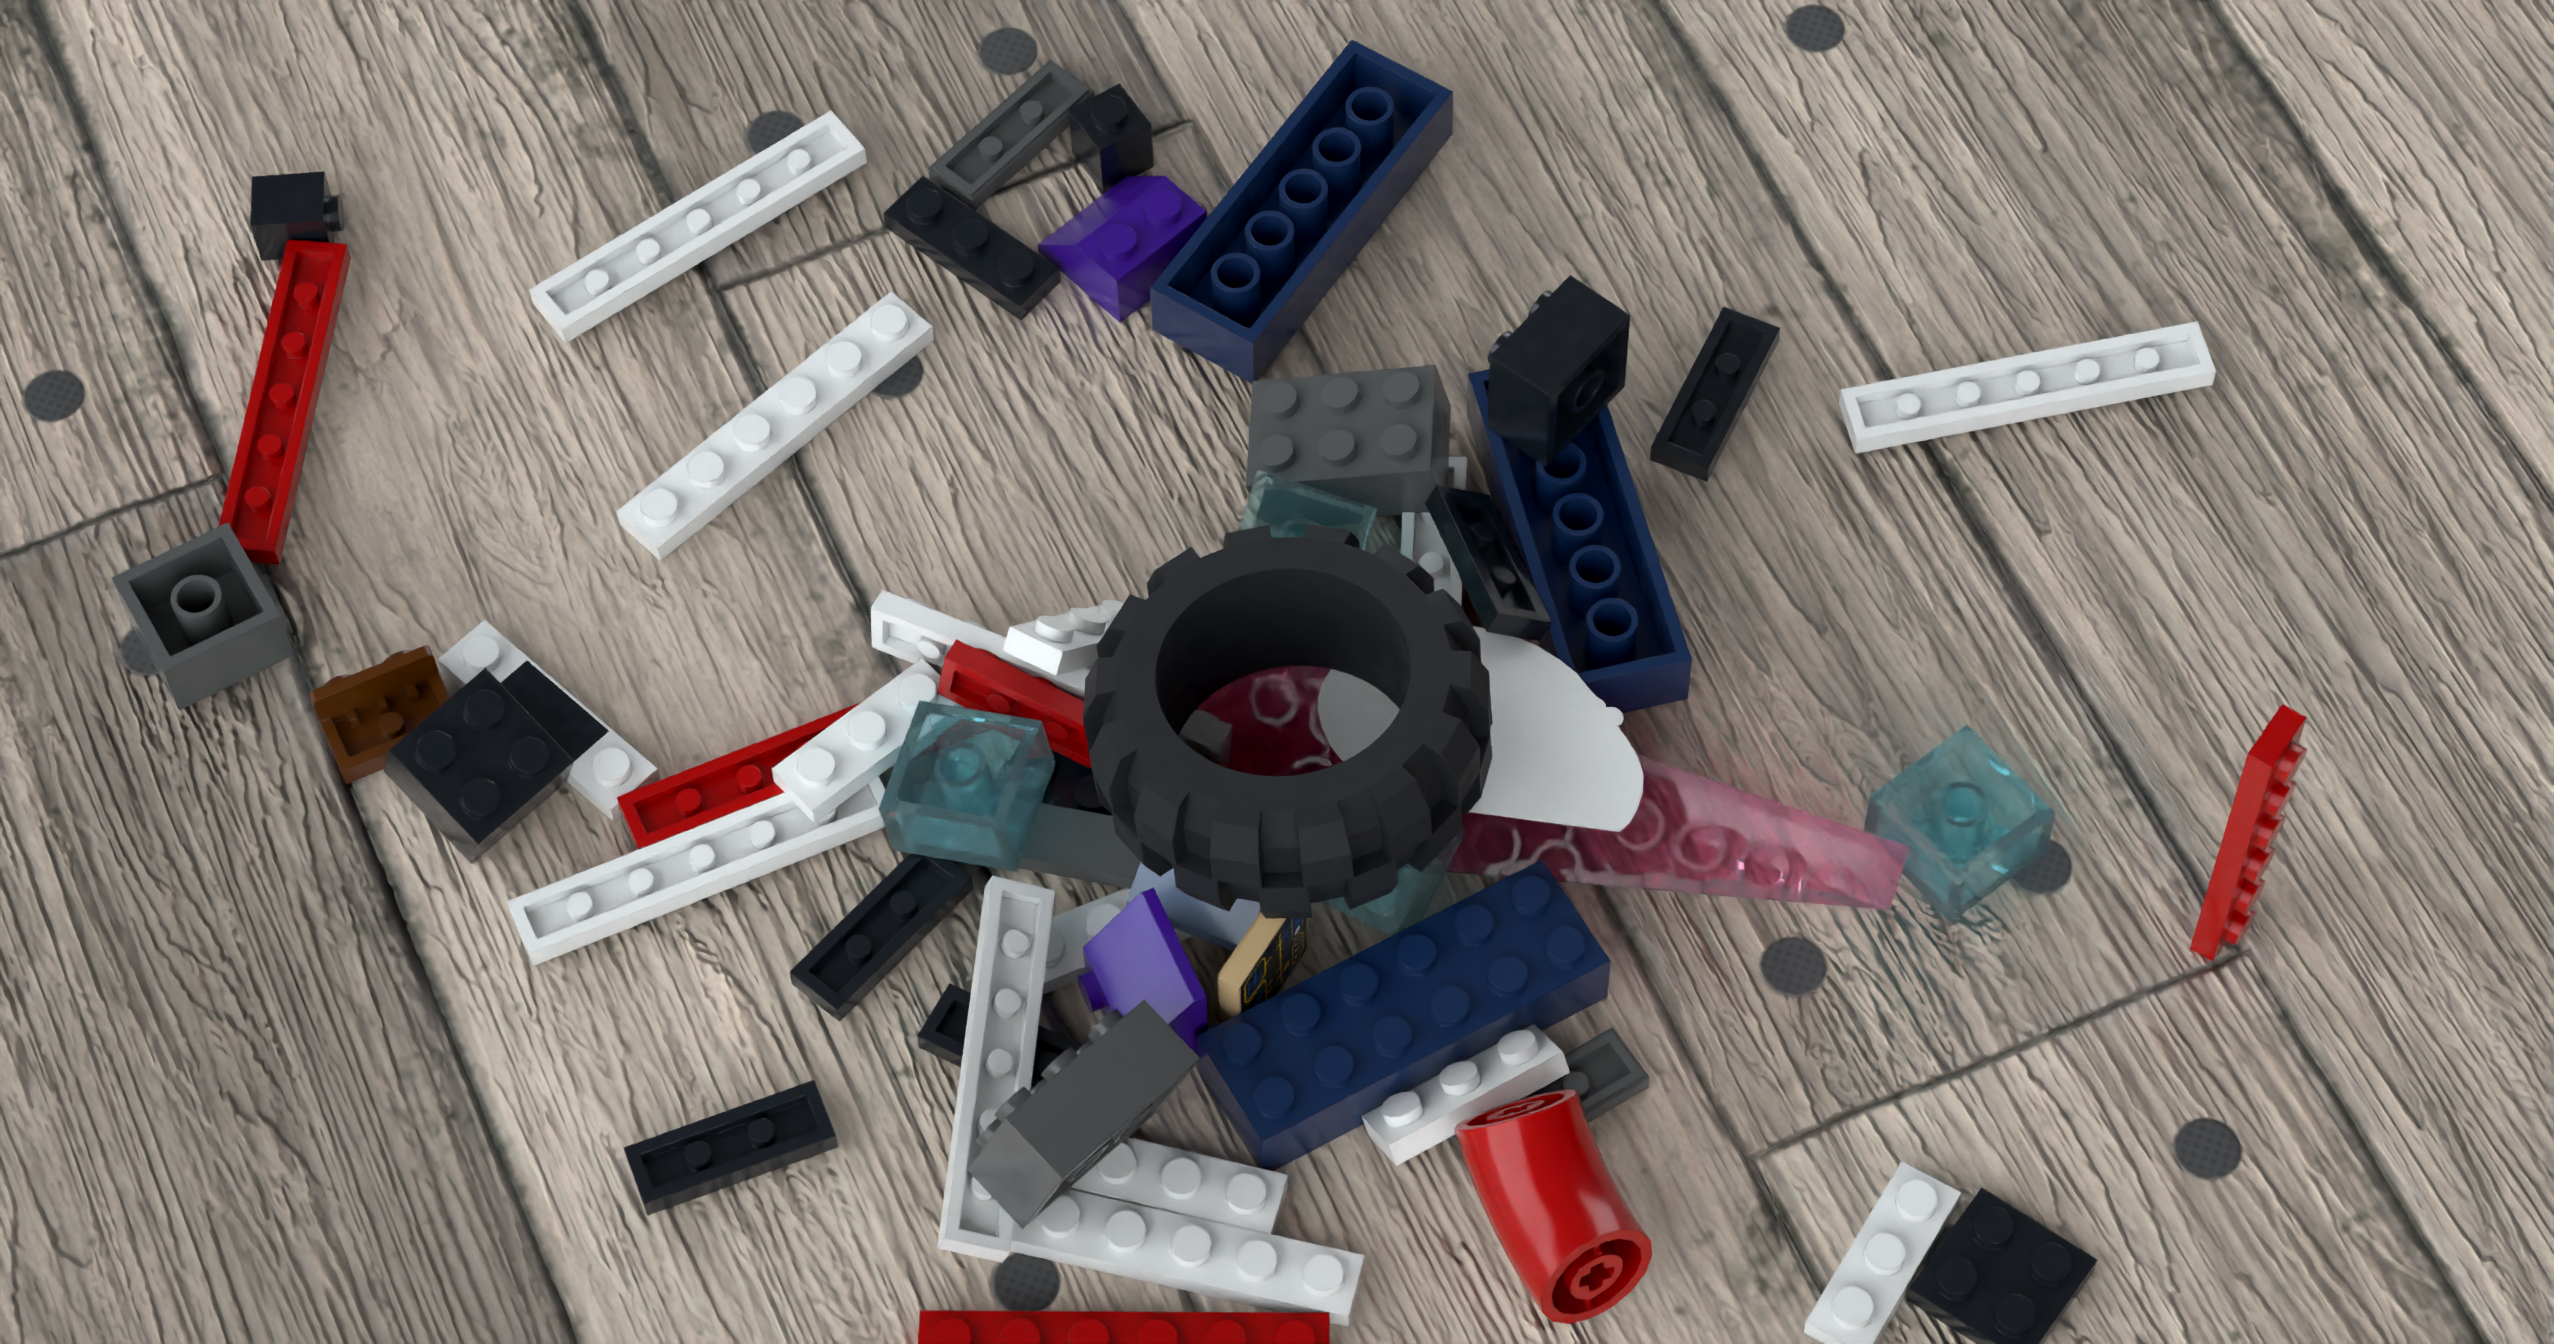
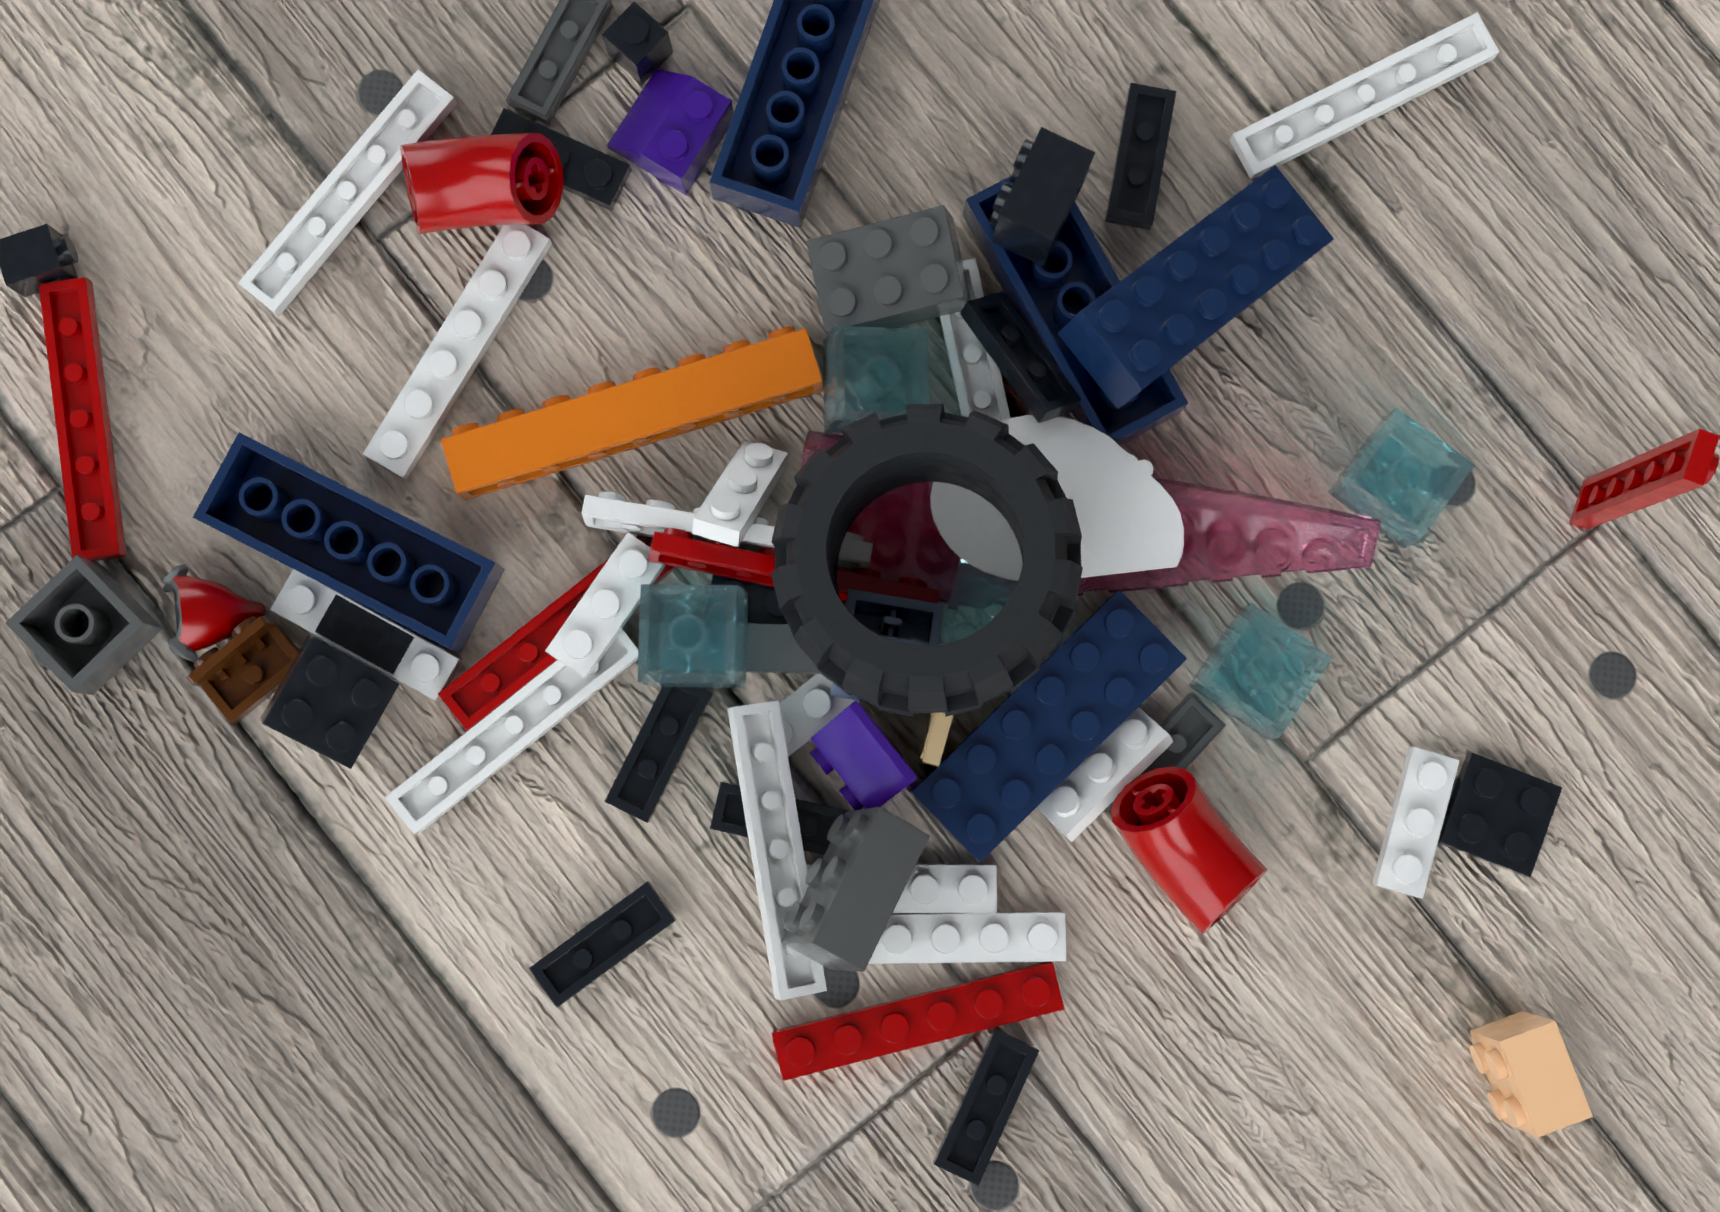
camera: 20 degrees left, 25 degrees up
(353, 632) = (204, 612): none -> red hat
(569, 599) = (349, 542): none -> dark blue brick
(870, 236) = (482, 181): none -> red brick
(965, 538) = (632, 413): none -> orange brick
(1707, 1010) = (1260, 672): none -> clear light blue brick
(1735, 526) = (1194, 286): none -> dark blue brick

